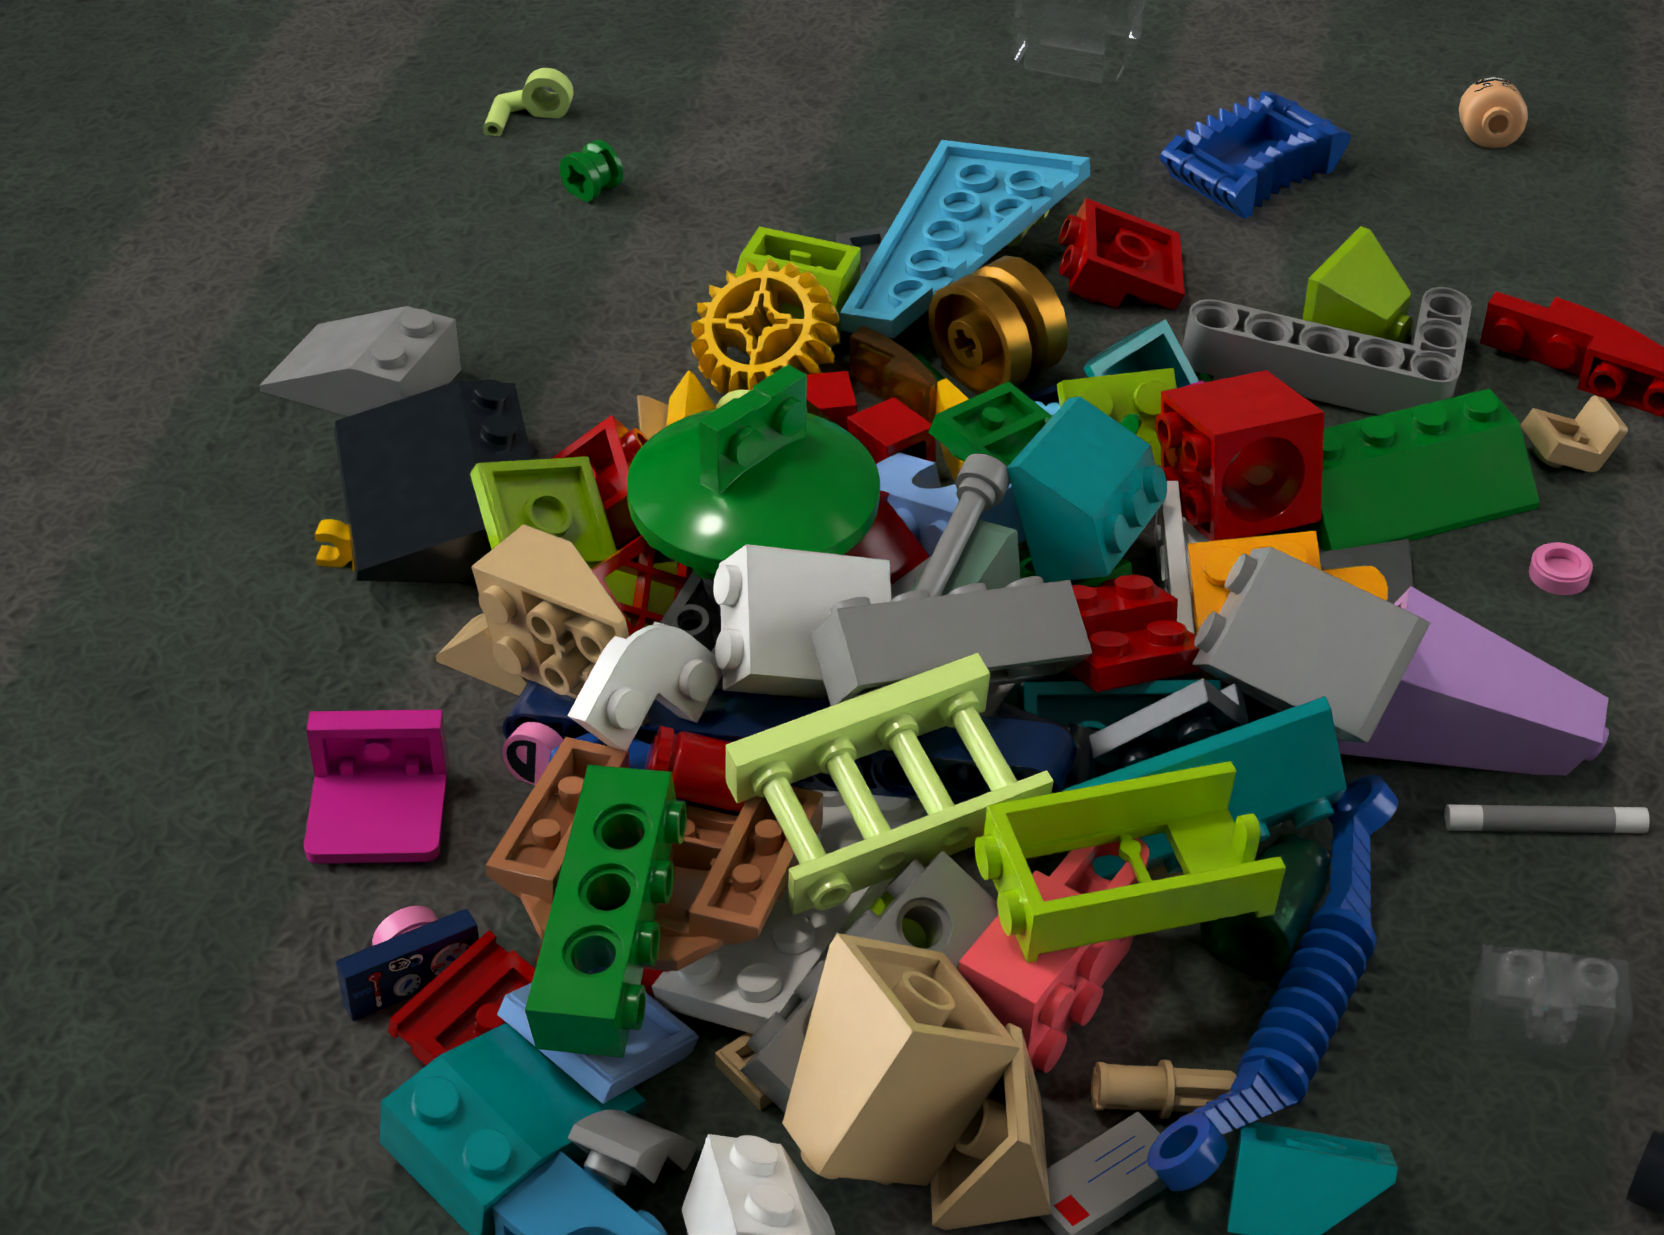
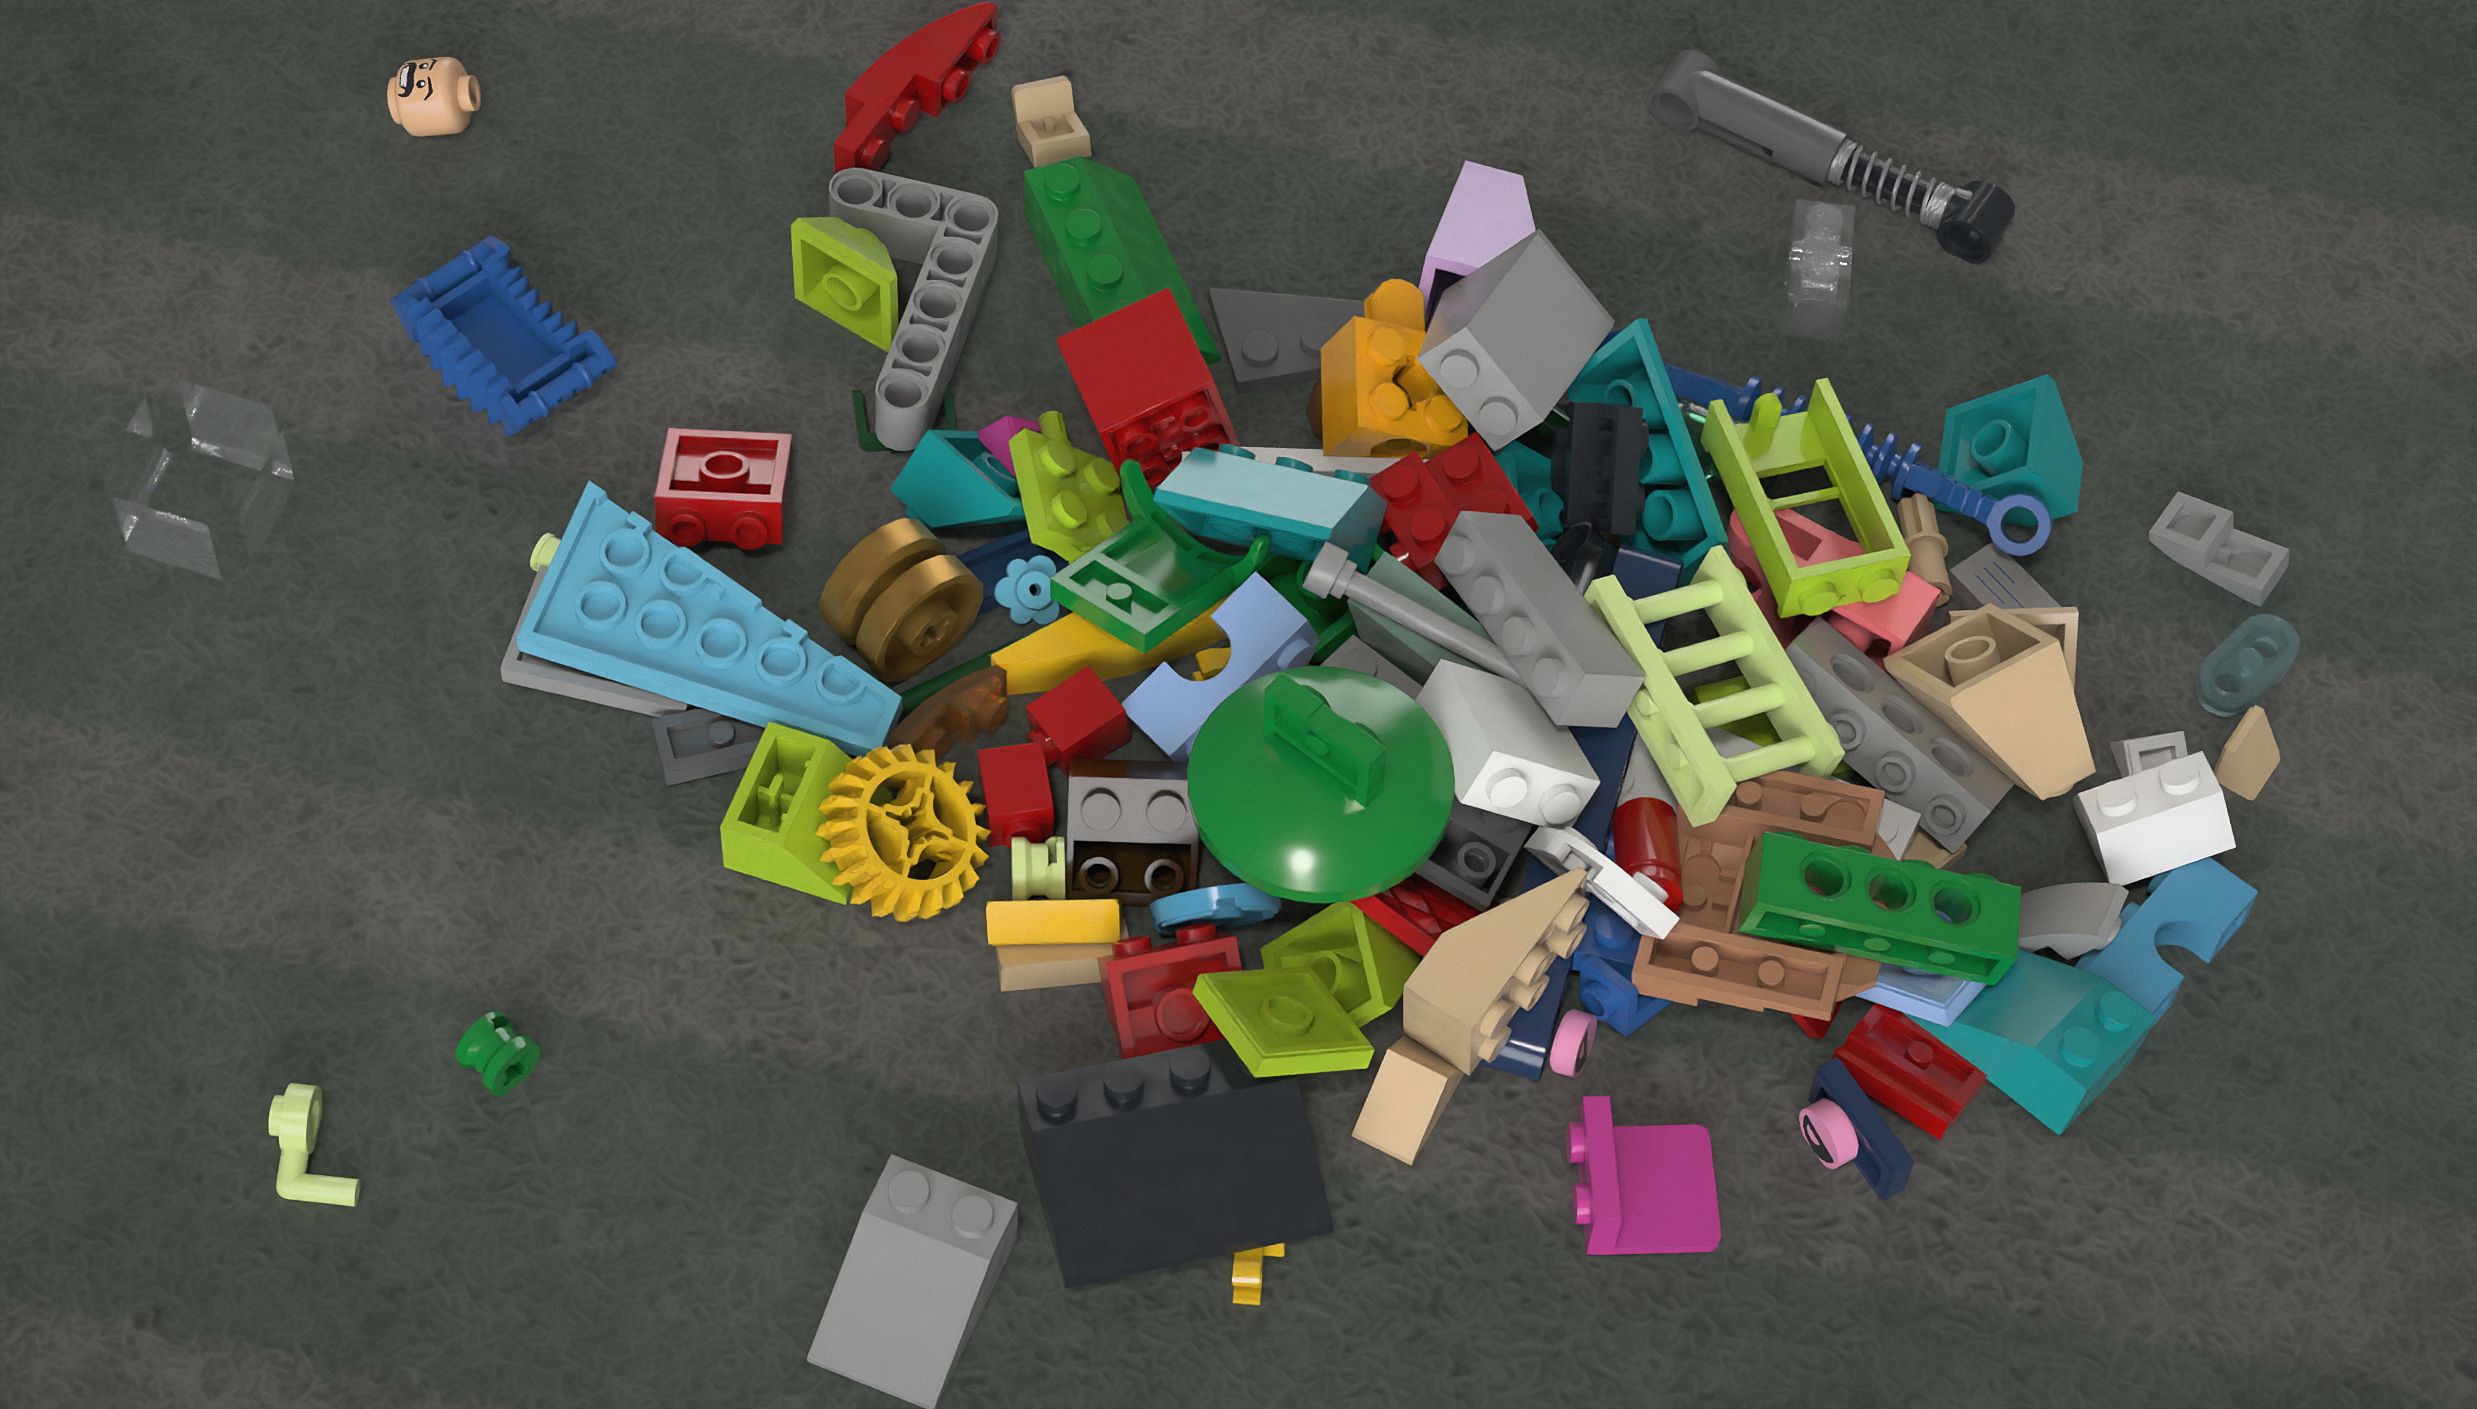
camera: 95 degrees left, 15 degrees up
(1547, 819) = (1574, 222): light grey bar -> none
(1560, 568) = (1236, 177): bright pink tile -> none

